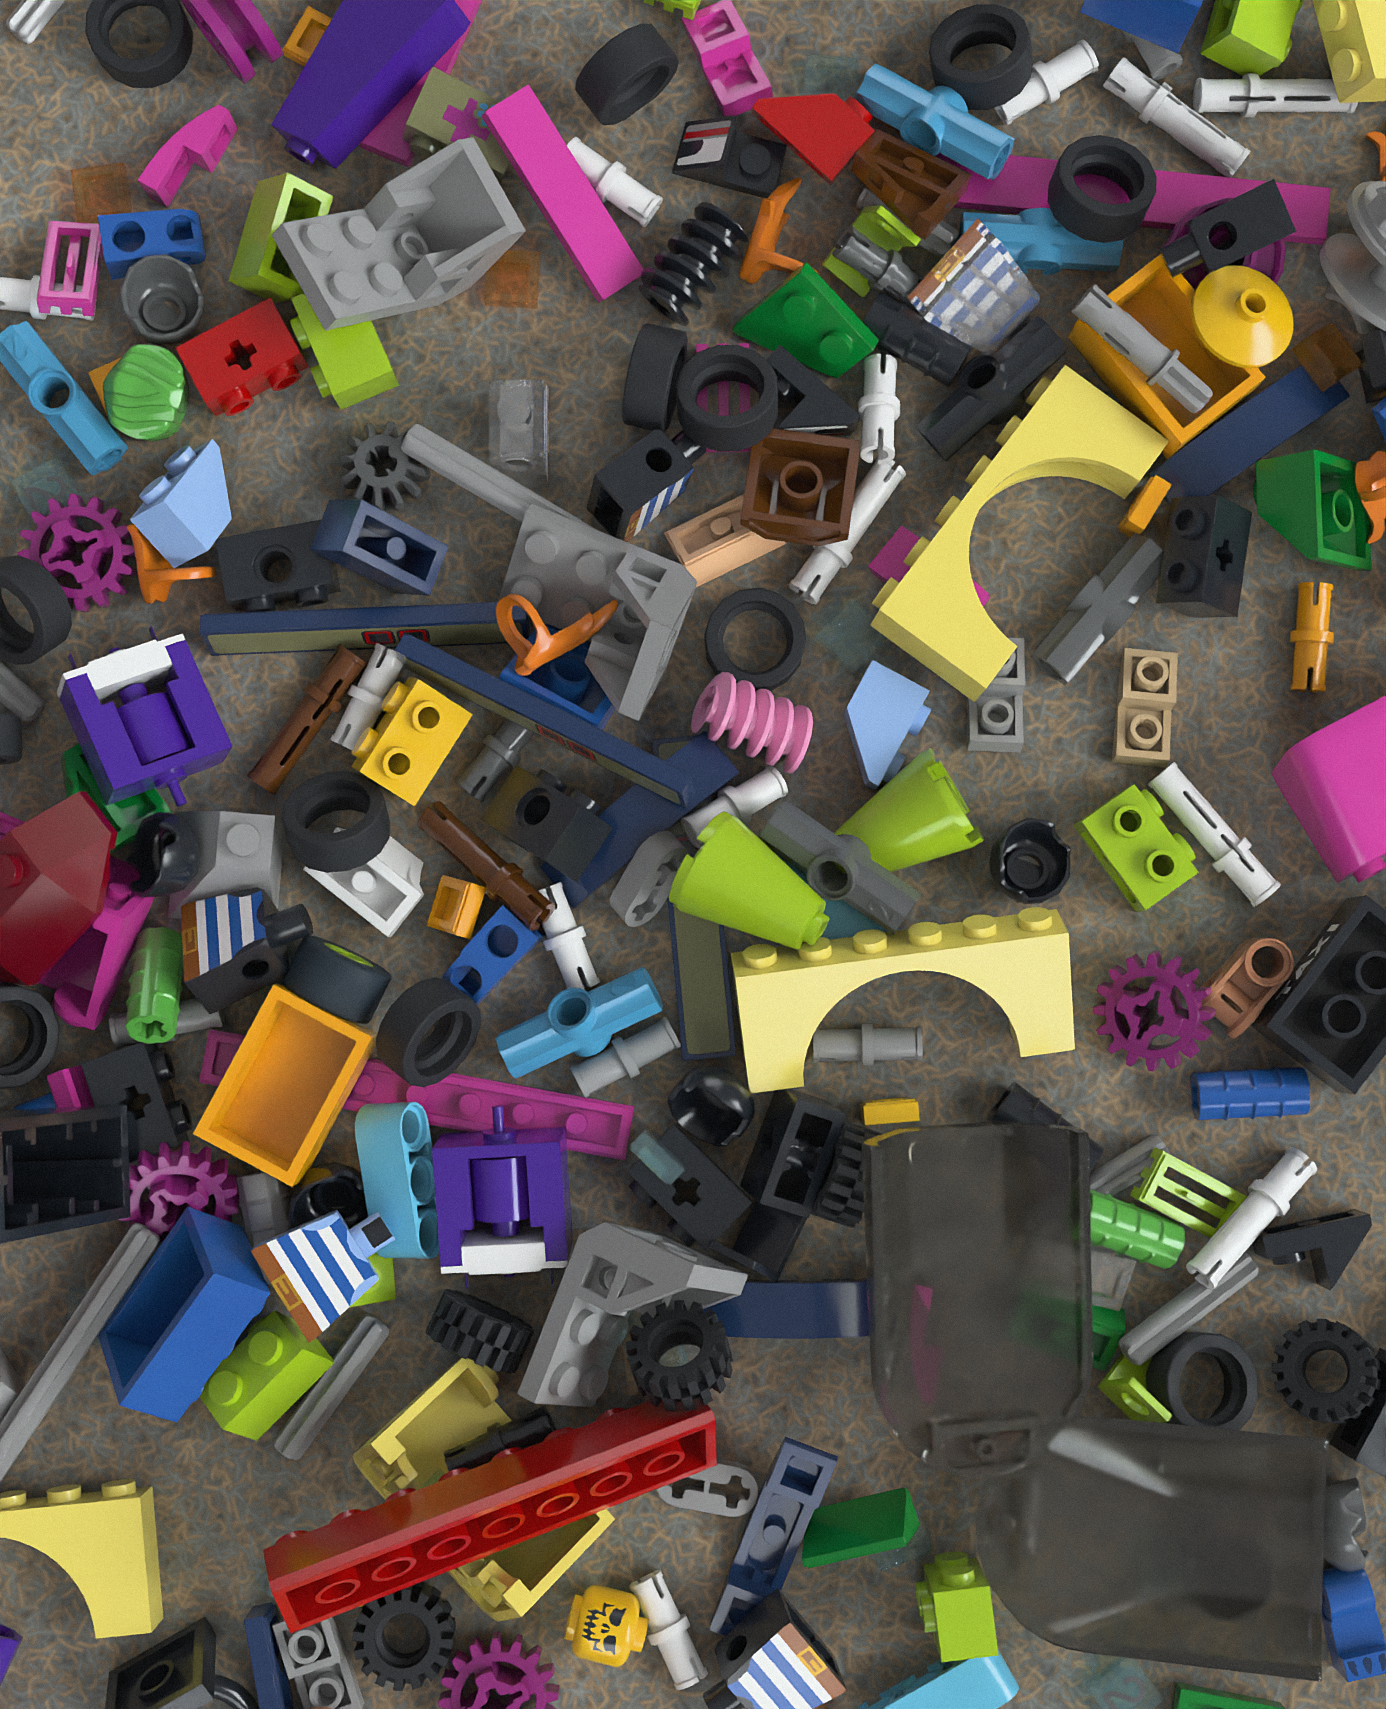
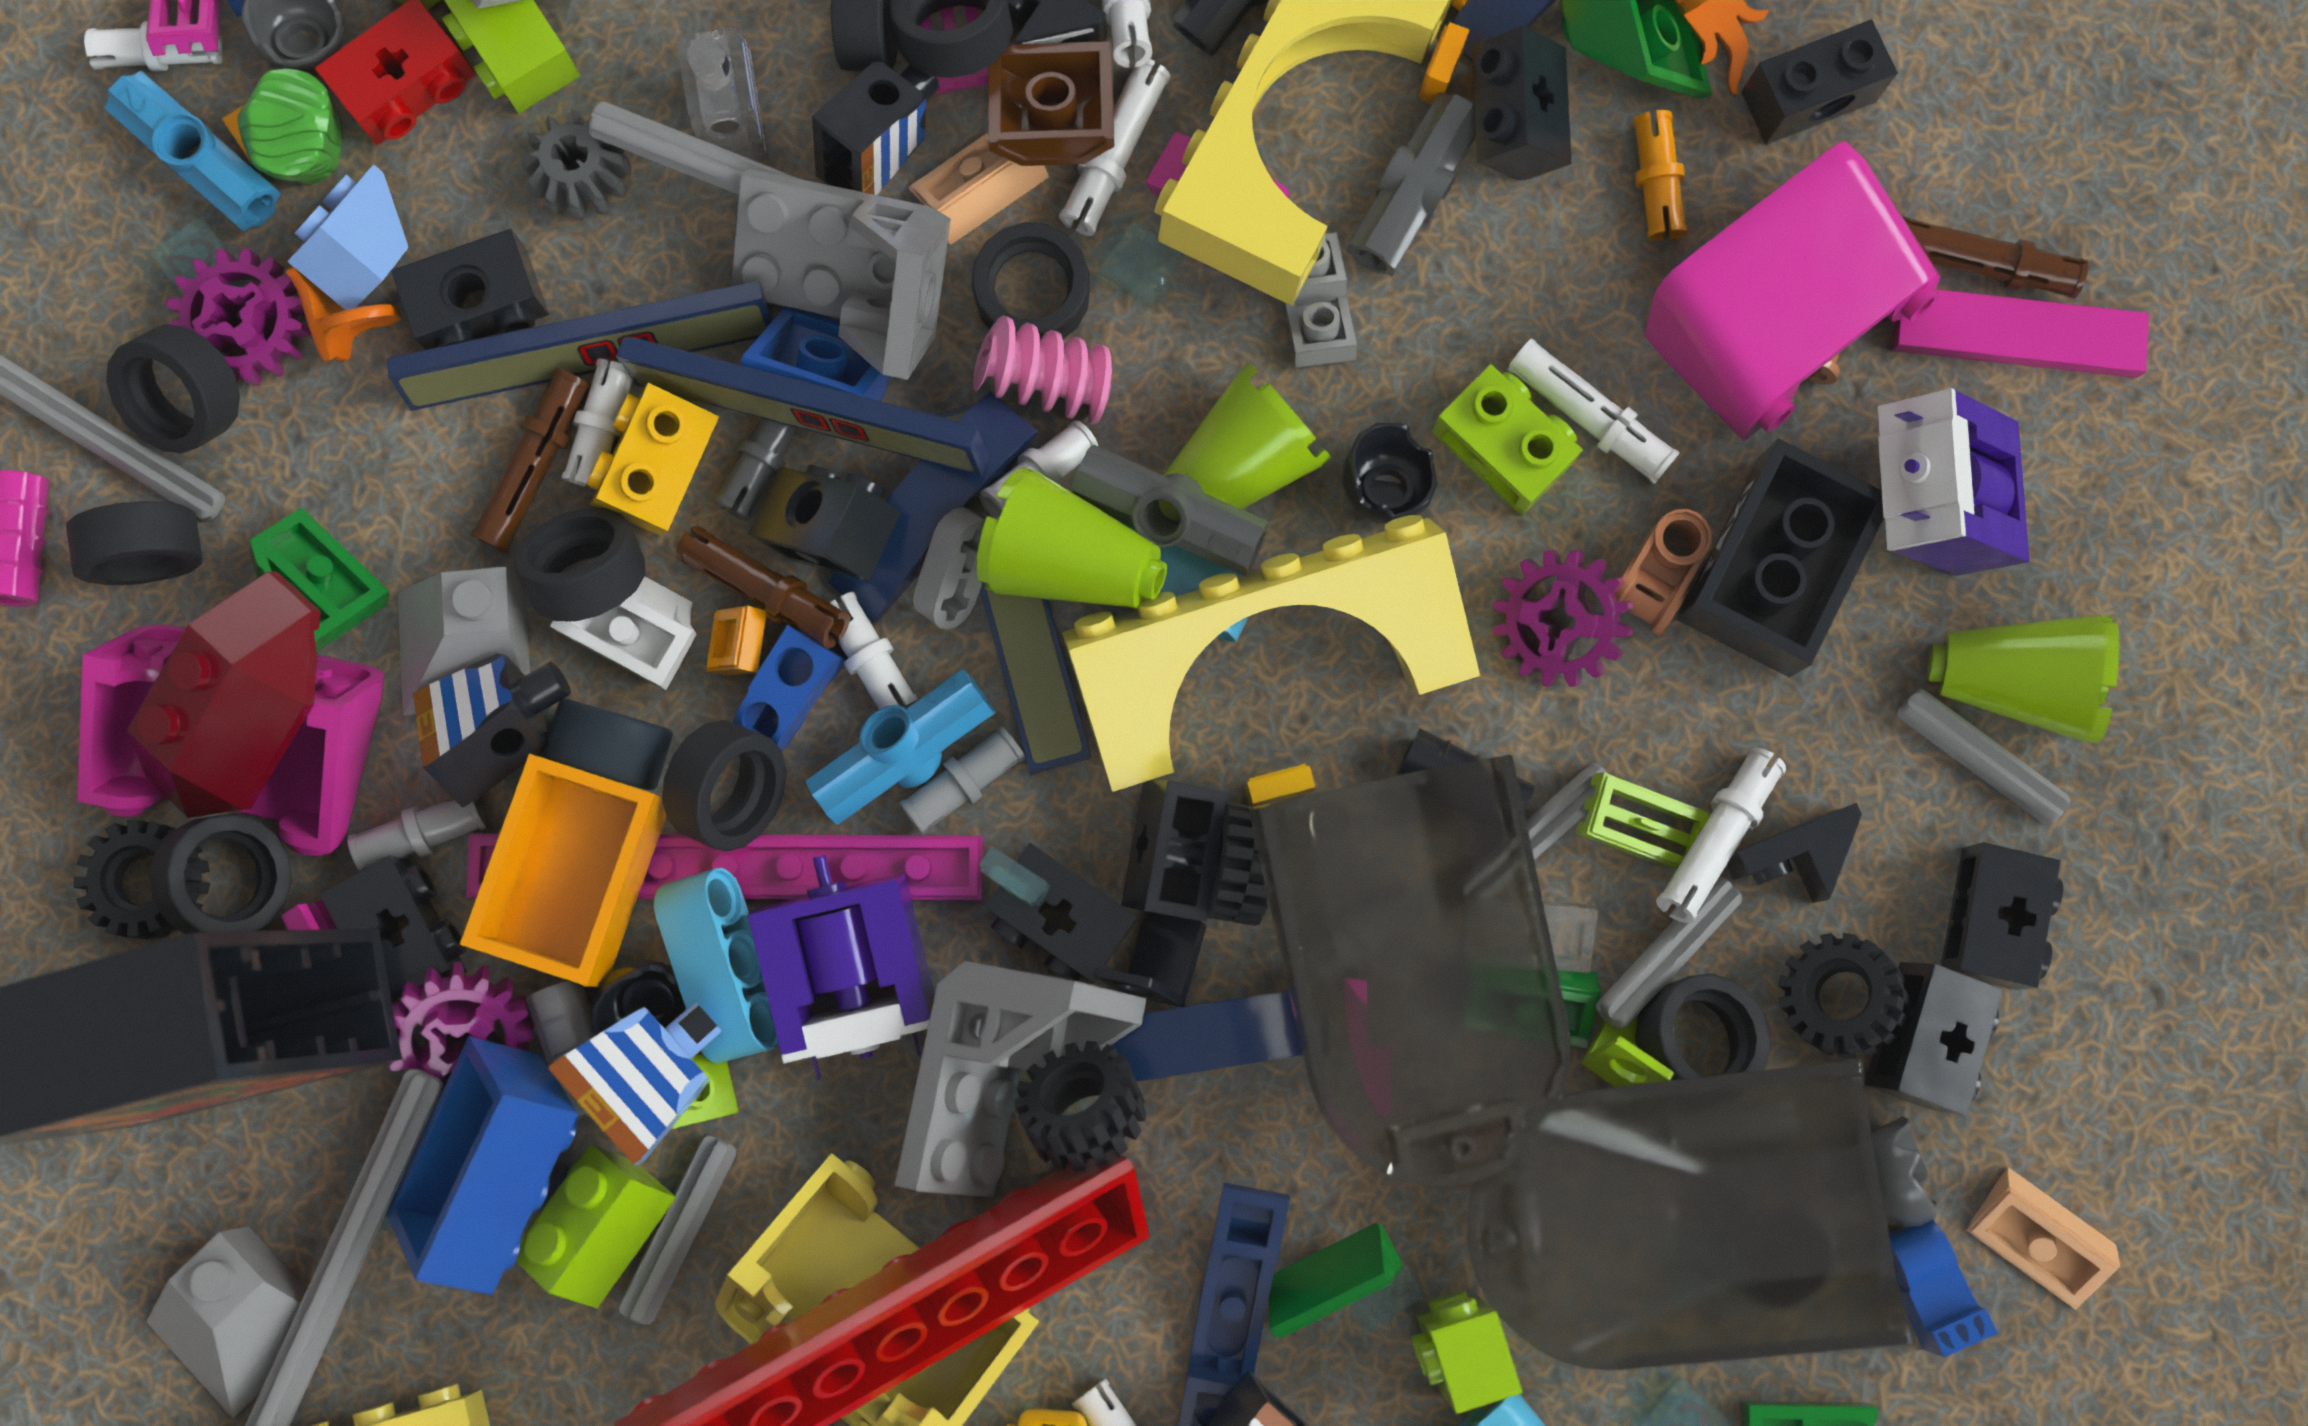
camera: 10 degrees left, 5 degrees down
(153, 736) = (327, 499): dark purple piece -> none
(155, 985) = (394, 790): bright green axle -> none
(164, 855) = (384, 636): black hair -> none
(379, 547) = (581, 246): dark blue brick -> none
(479, 1331) = (841, 1126): black tyre -> none
(518, 1433) = (907, 1240): black pin -> none
(546, 646) = (789, 318): orange piece -> none
(712, 1105) = (1071, 815): black hair -> none
(714, 1500) = (1152, 1283): light grey beam -> none
(867, 1044) = (1240, 716): light grey pin -> none
(880, 717) = (1188, 345): light blue slope -> none
(1135, 1231) = (1589, 873): bright green axle -> none
(1144, 707) = (1487, 286): tan slope -> none
(1250, 1093) = (1691, 694): blue axle -> none

